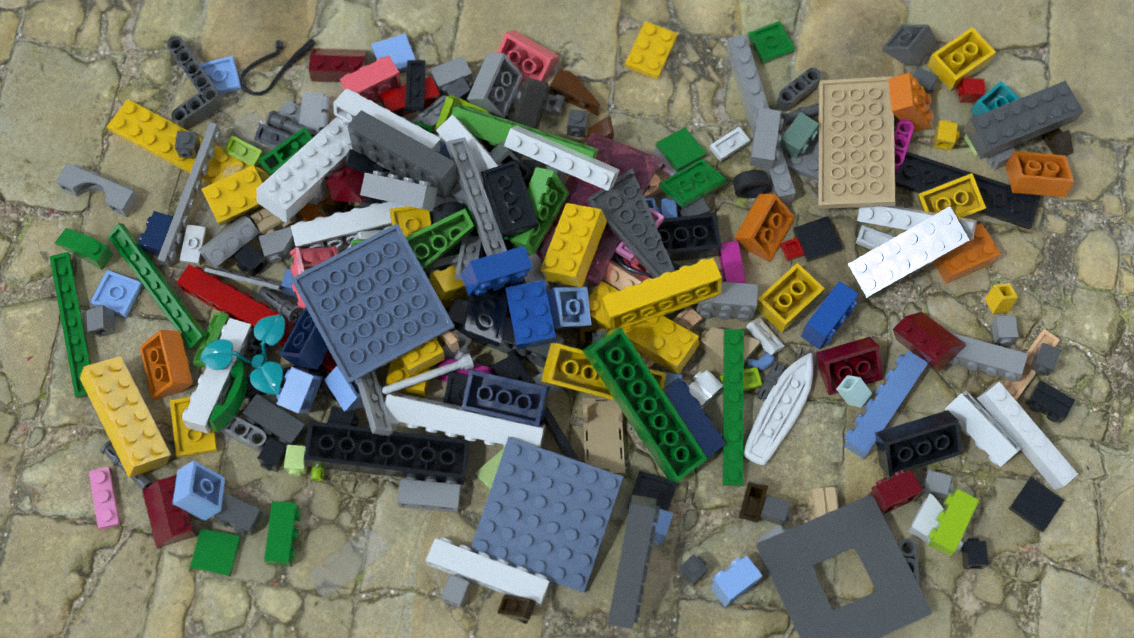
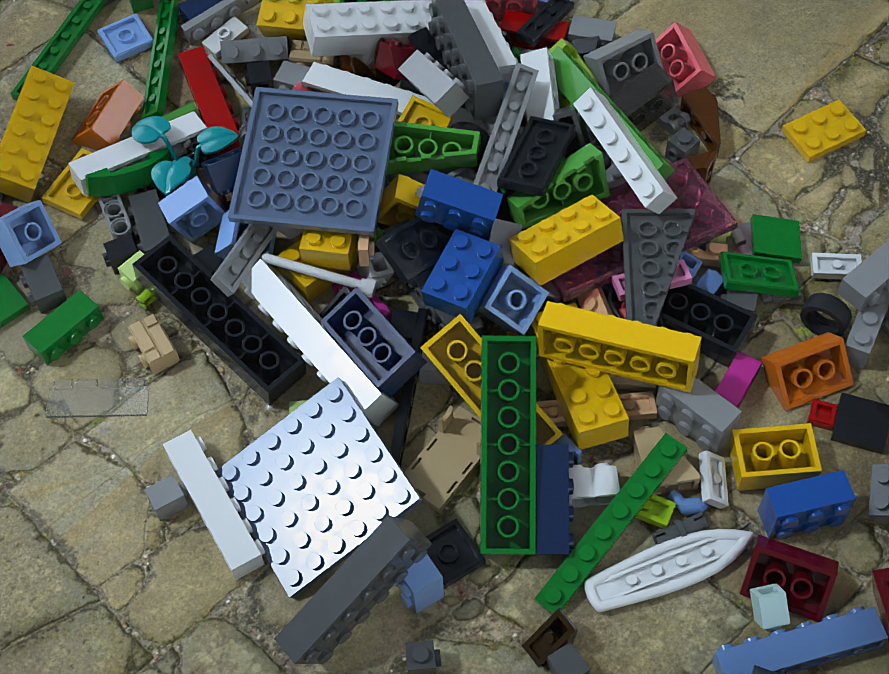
camera: 45 degrees right, 10 degrees down
(101, 321) = (89, 48): dark grey brick -> none
(353, 500) = (153, 343): none -> tan brick
(429, 495) = (226, 389): light grey brick -> none
(516, 608) = (210, 561): dark brown slope -> none

